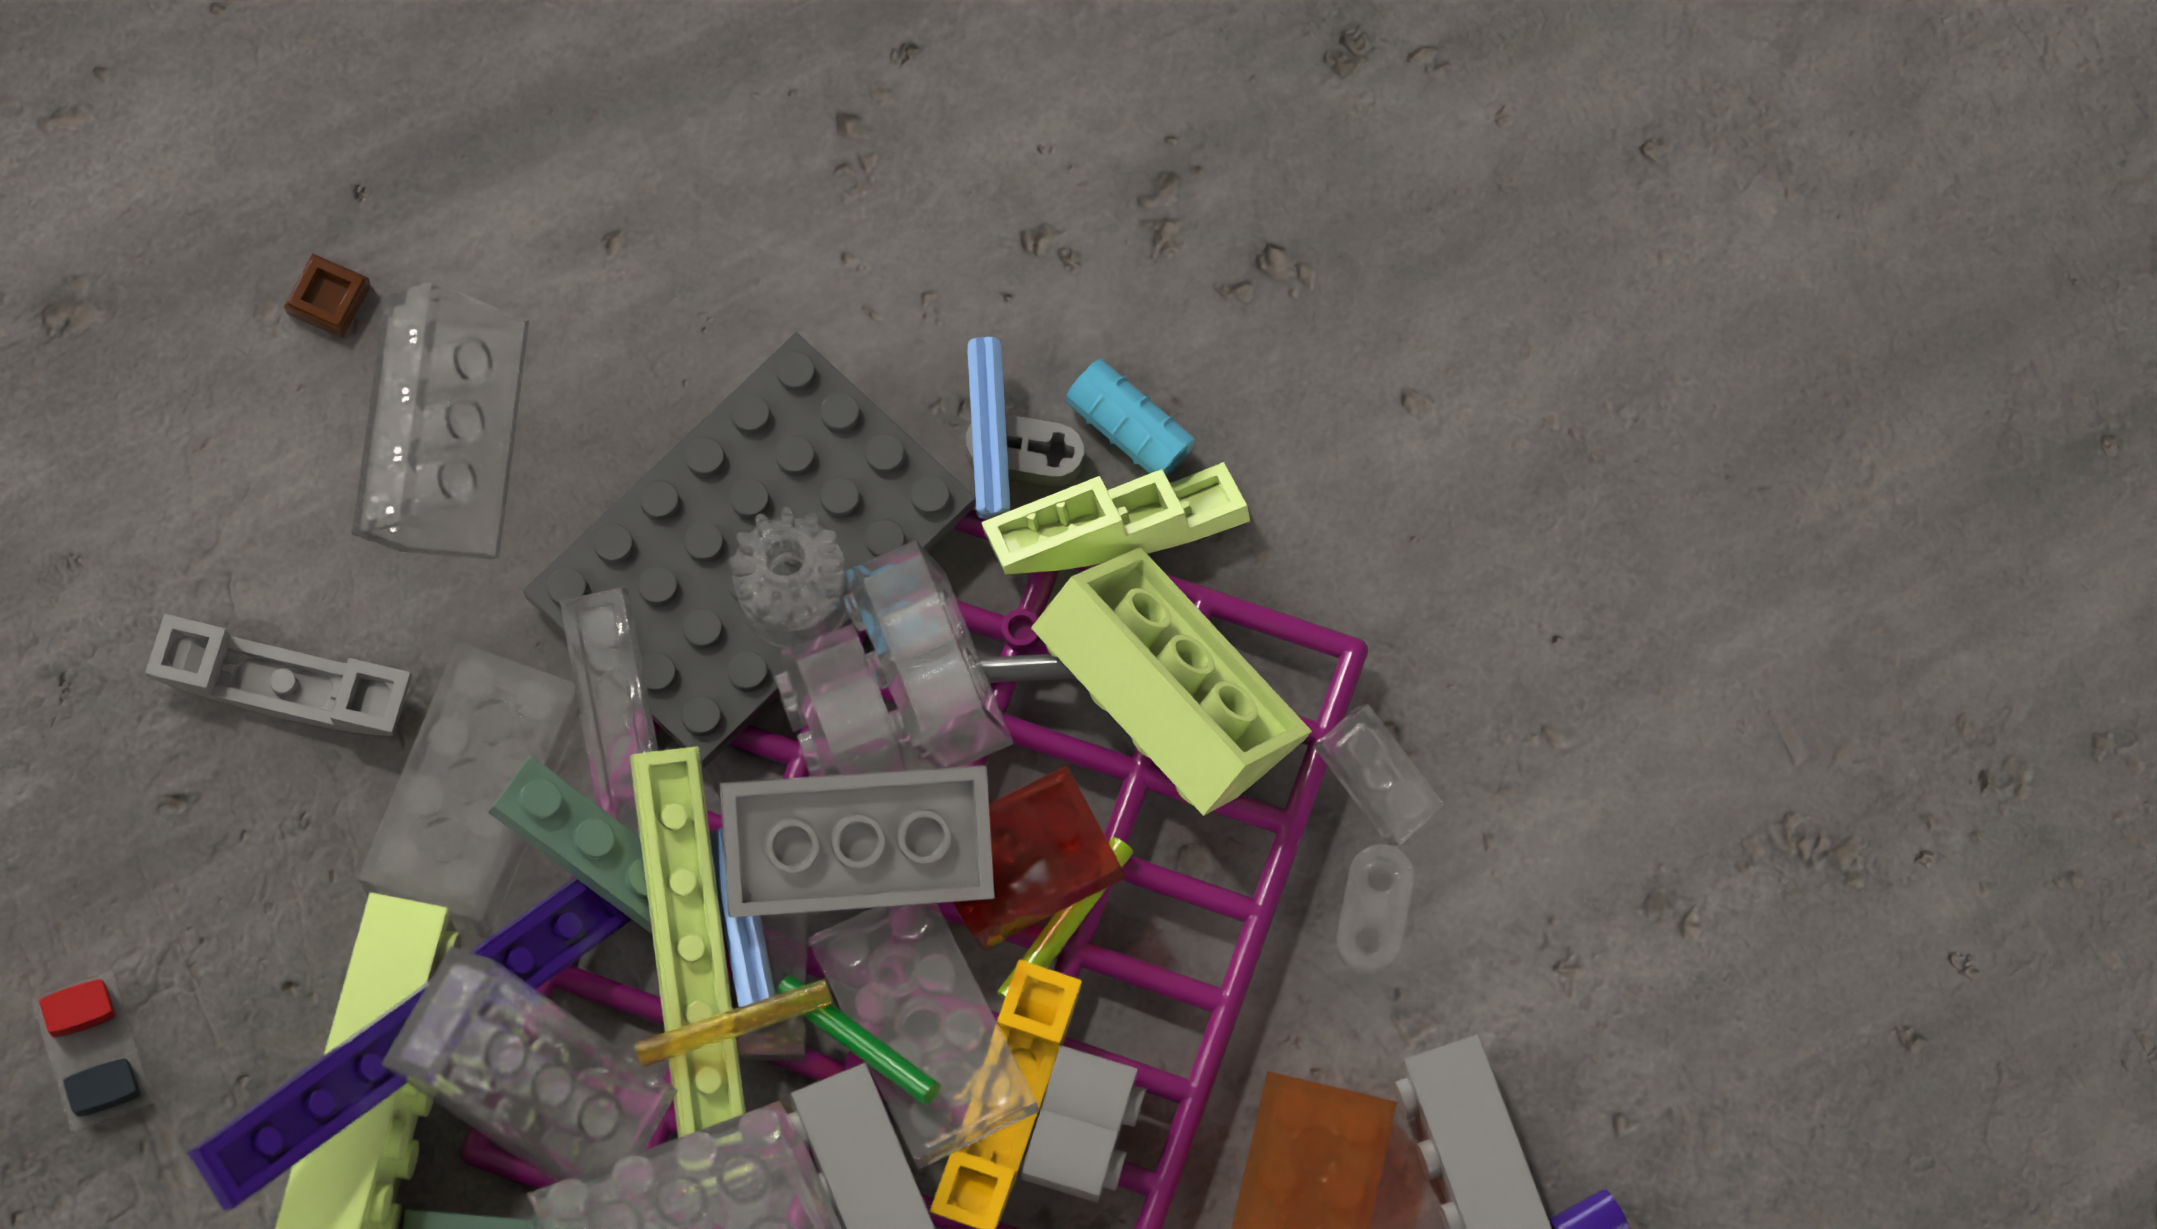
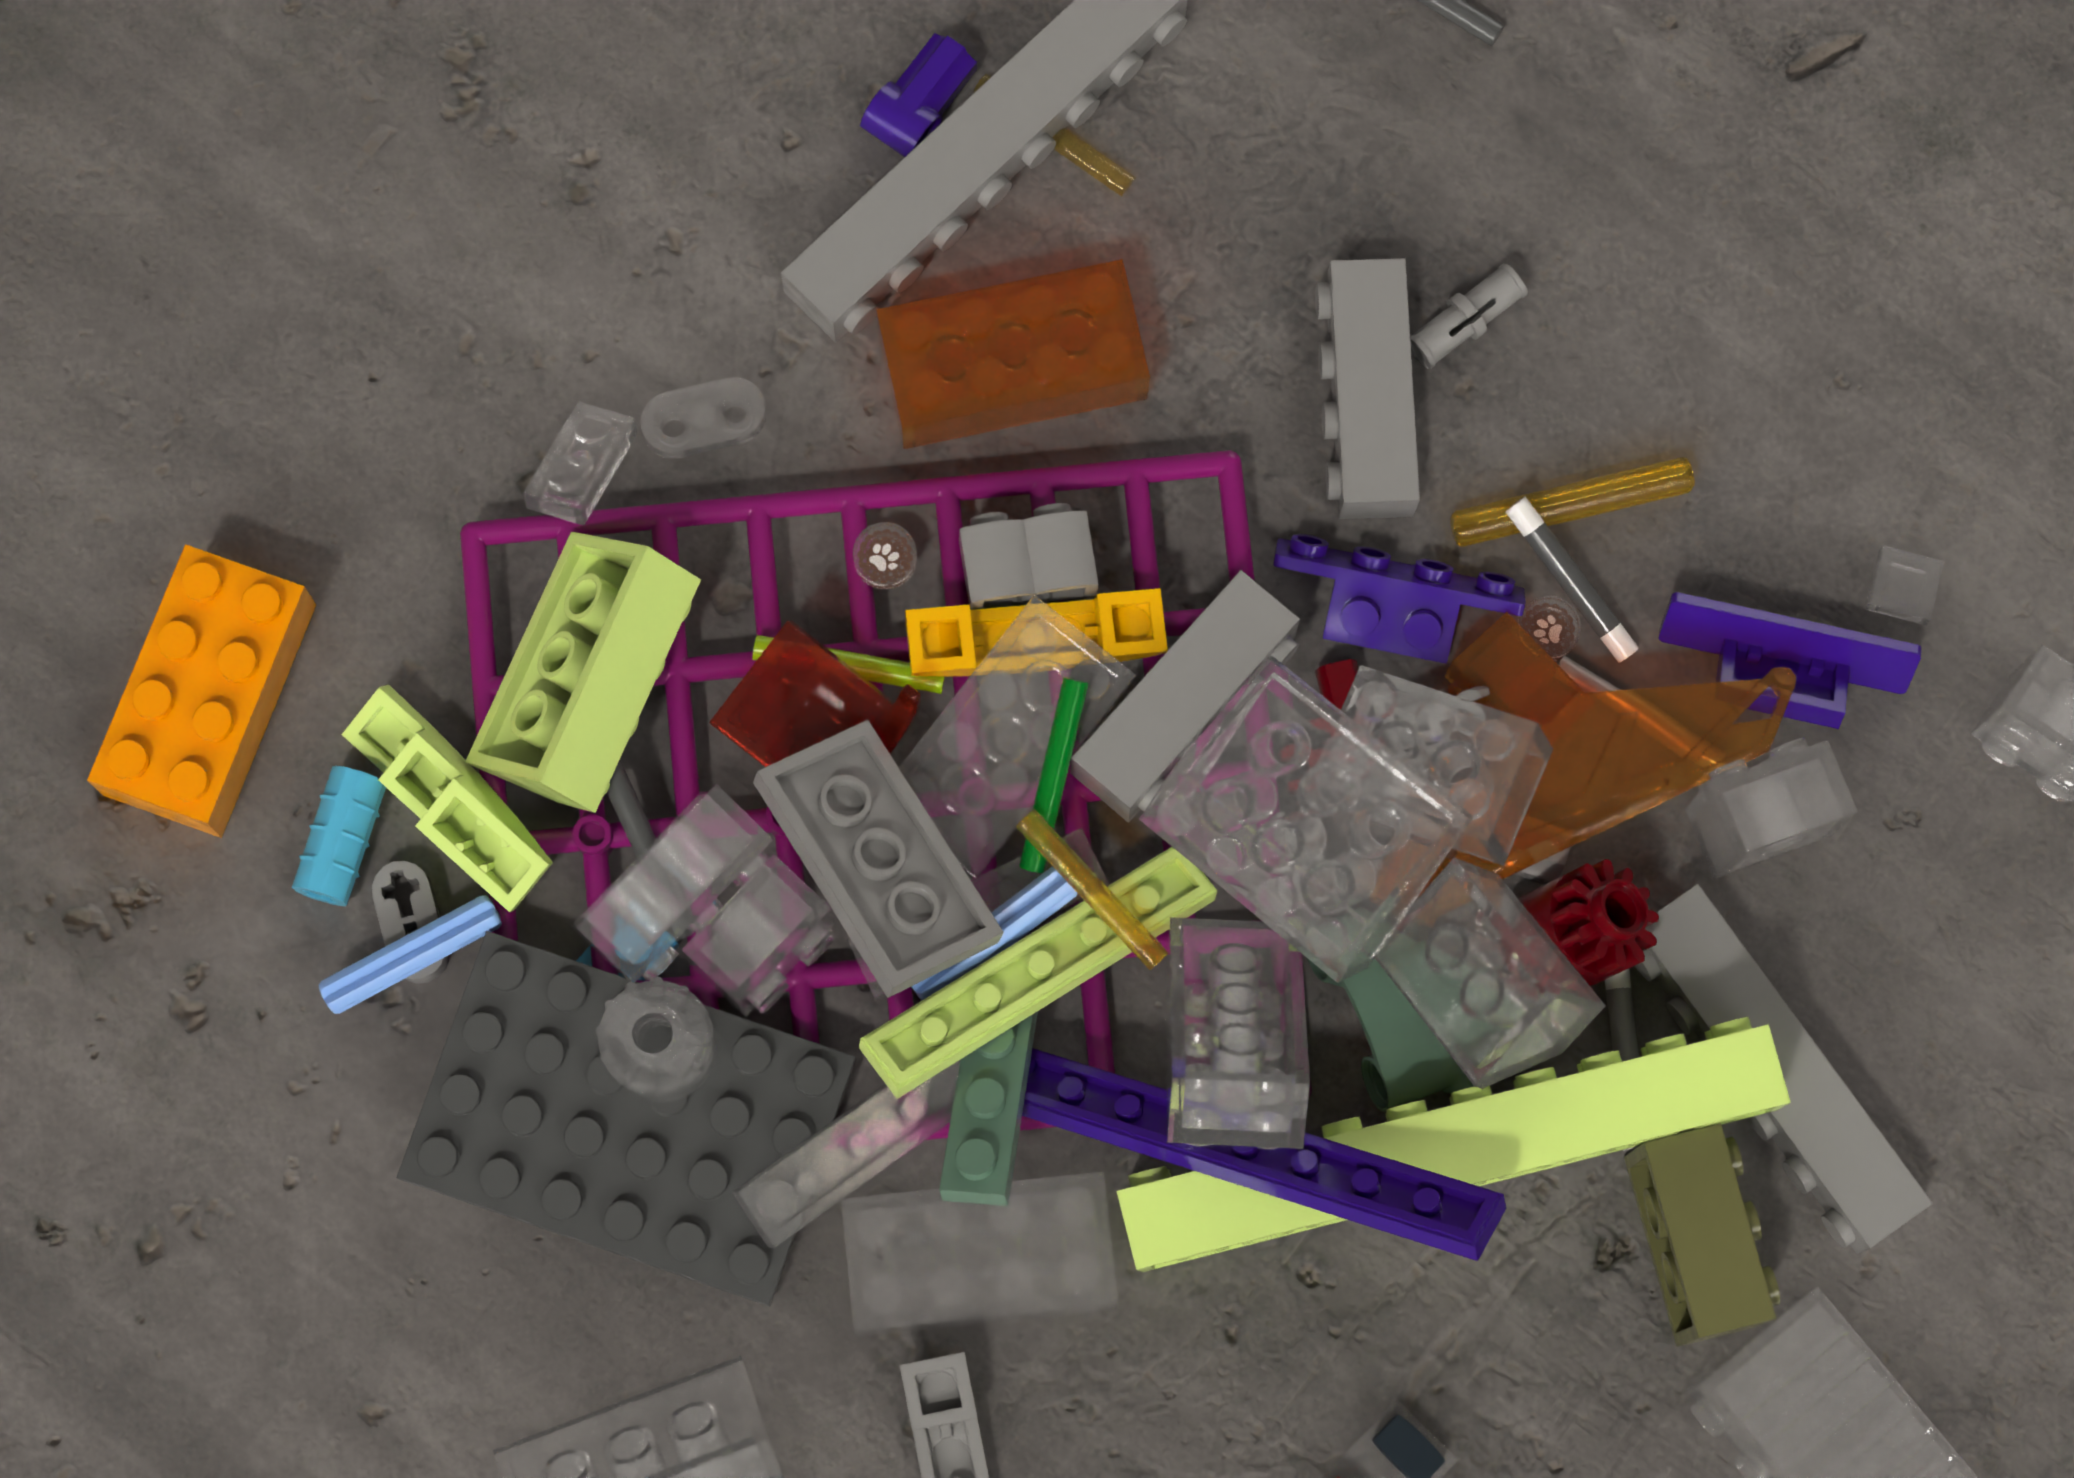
camera: 115 degrees left, 5 degrees up
(1153, 1001) = (884, 555): none -> clear tile
(1318, 360) = (202, 691): none -> light orange brick

